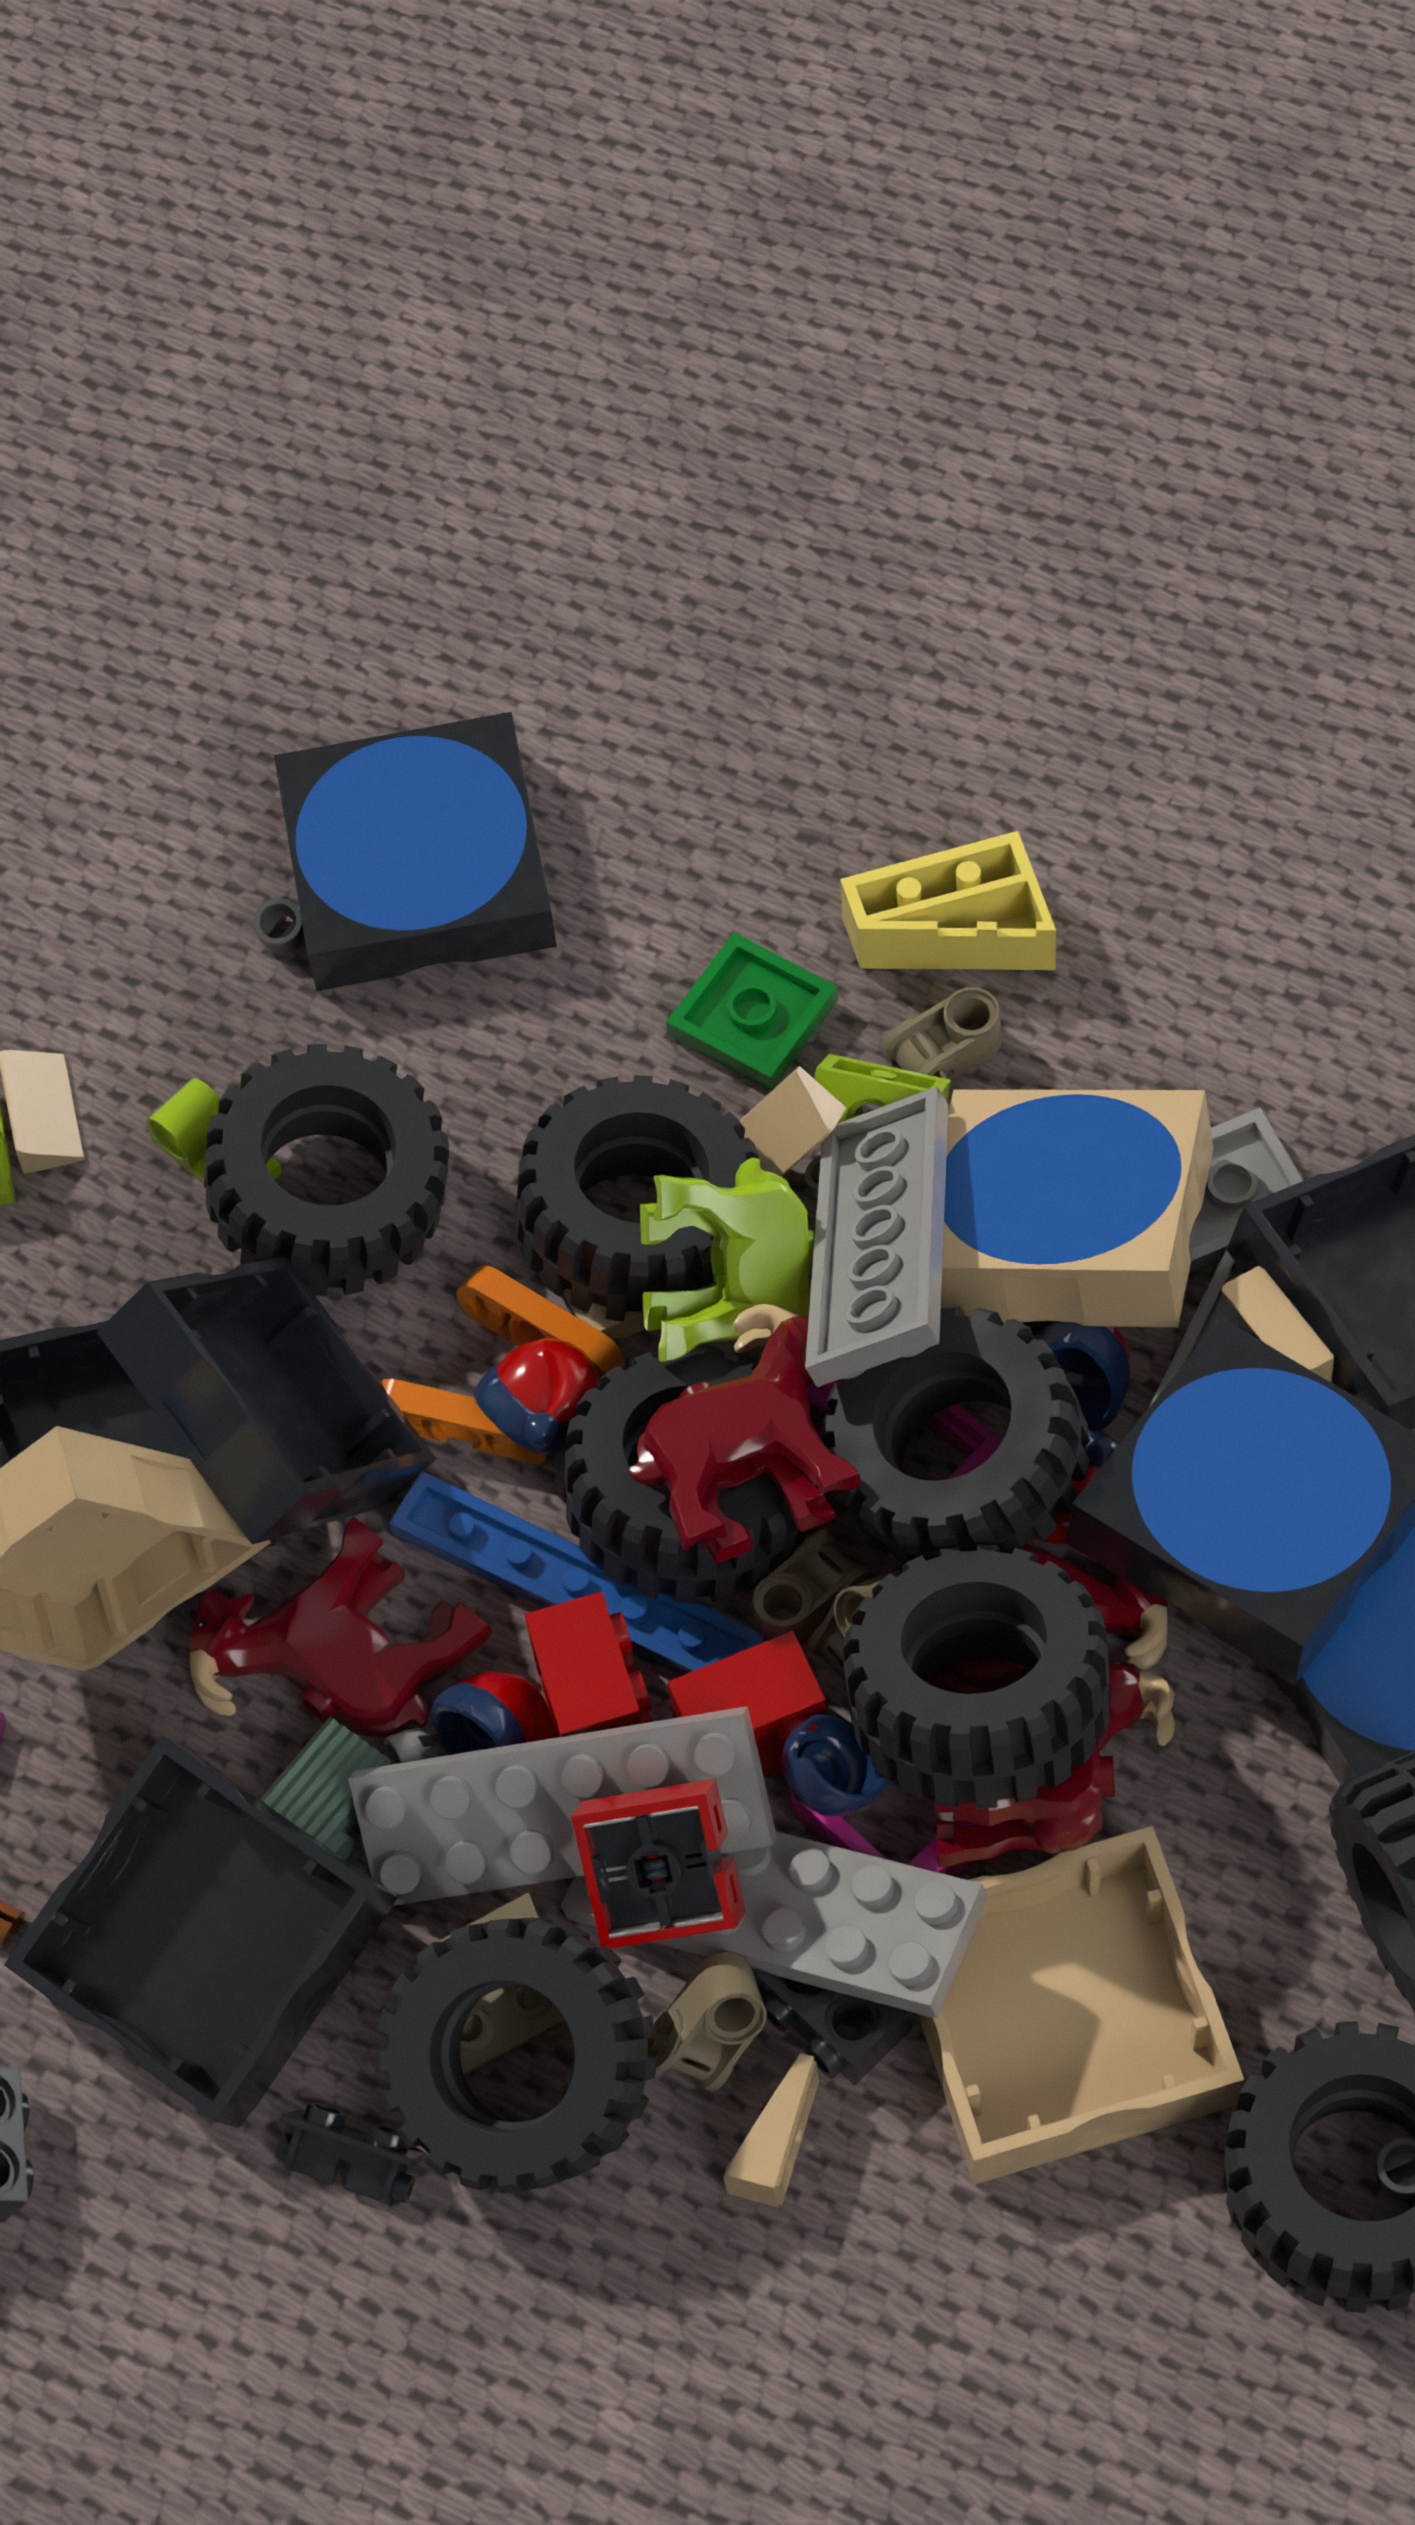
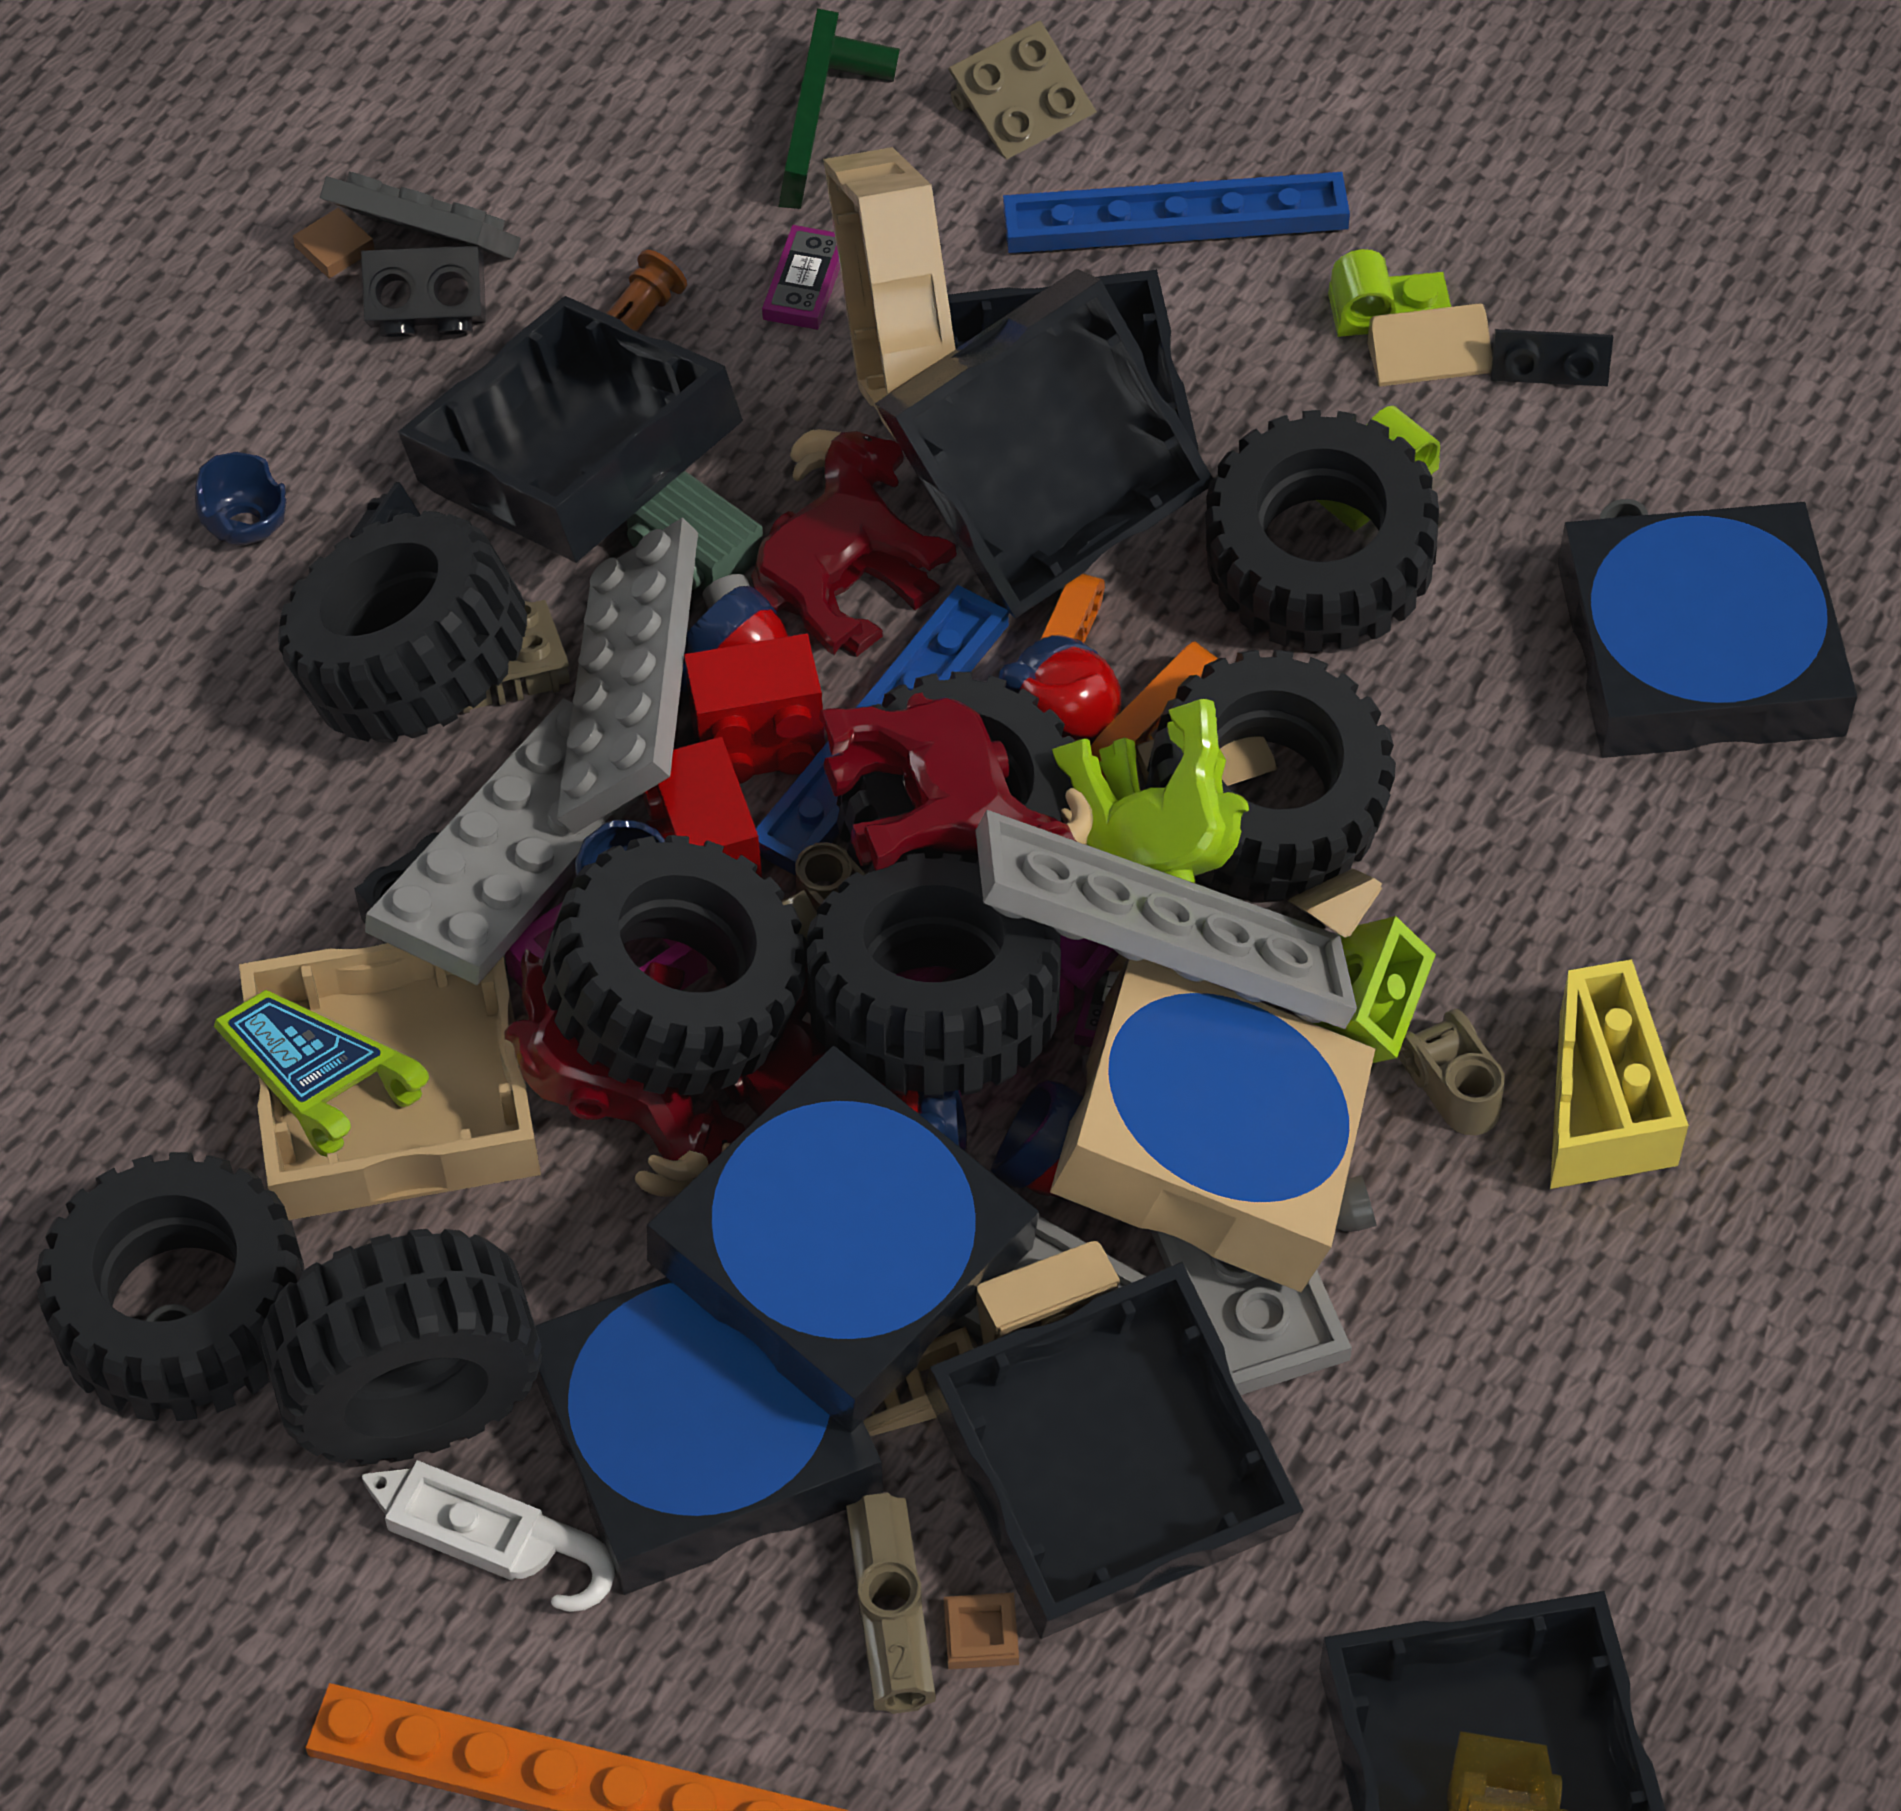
camera: 90 degrees right, 5 degrees down
(55, 977) = (1551, 357): none -> black hinge
(272, 2299) = (238, 485): none -> dark blue hair
(658, 1864) = (541, 718): piece -> none
(710, 2021) = (421, 785): dark tan piece -> none
(752, 1010) = (1506, 908): green plate -> none
(769, 2151) = (310, 842): tan slope -> none
(1081, 2071) = (313, 1061): none -> flag

